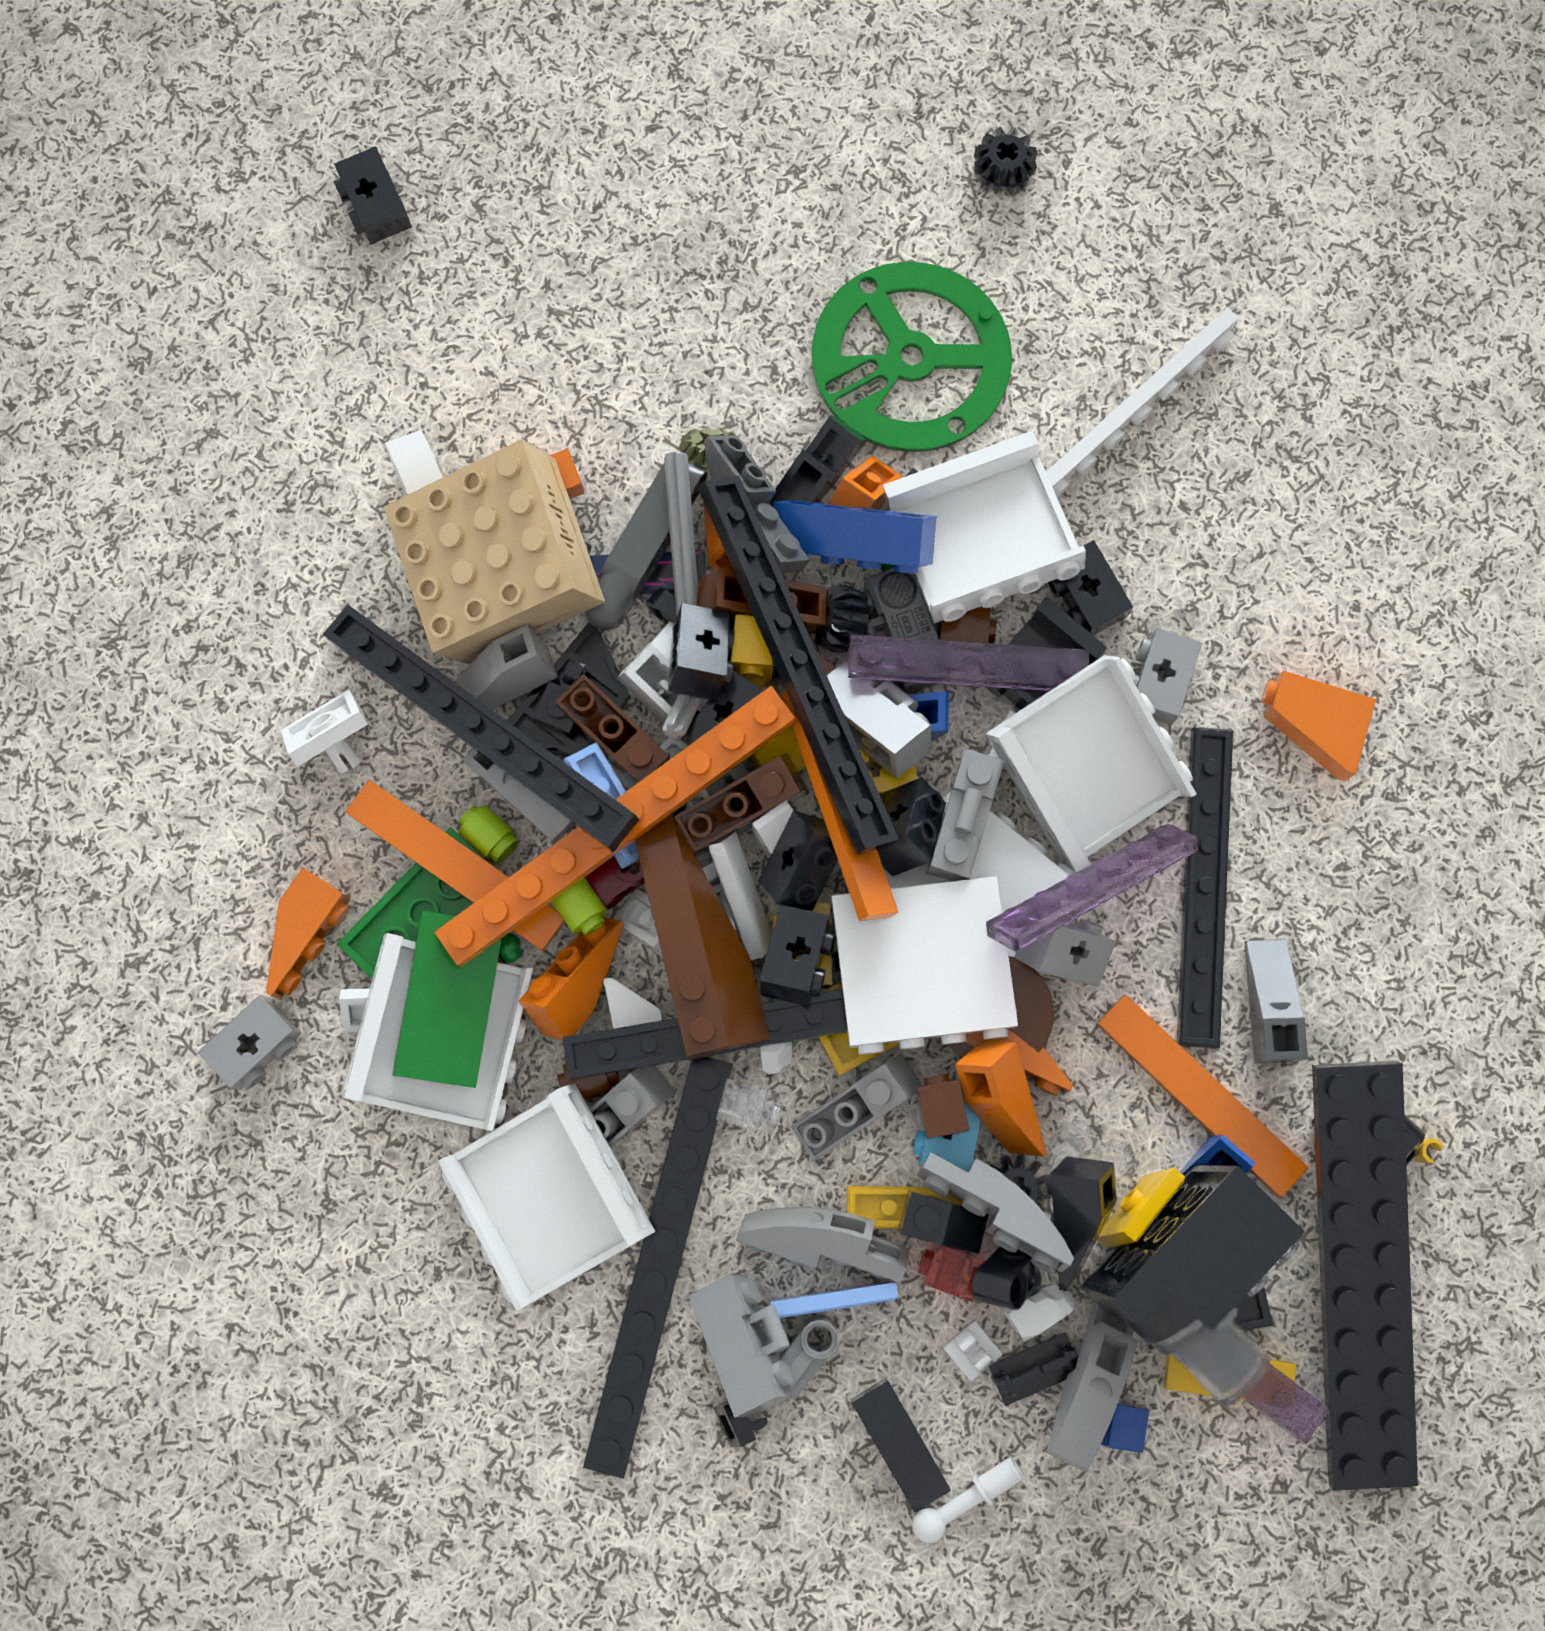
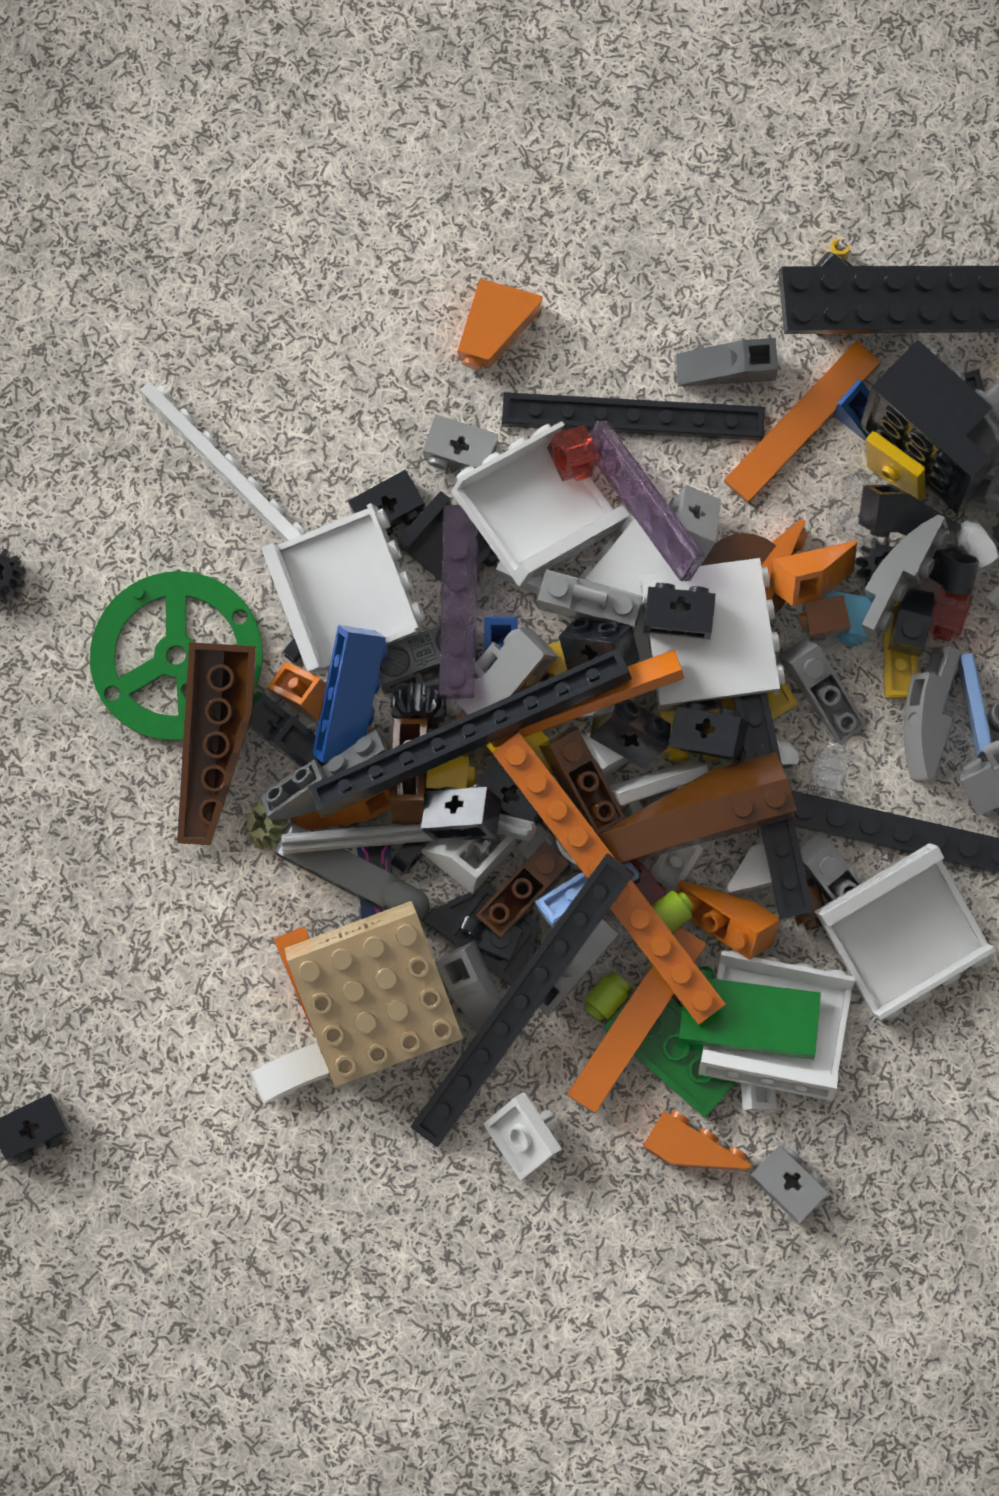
camera: 85 degrees left, 0 degrees up
(814, 381) = (214, 731): none -> reddish brown wedge
(933, 941) = (662, 617): none -> black brick
(971, 627) = (430, 601): reddish brown brick -> none
(1155, 807) = (574, 453): none -> clear red brick

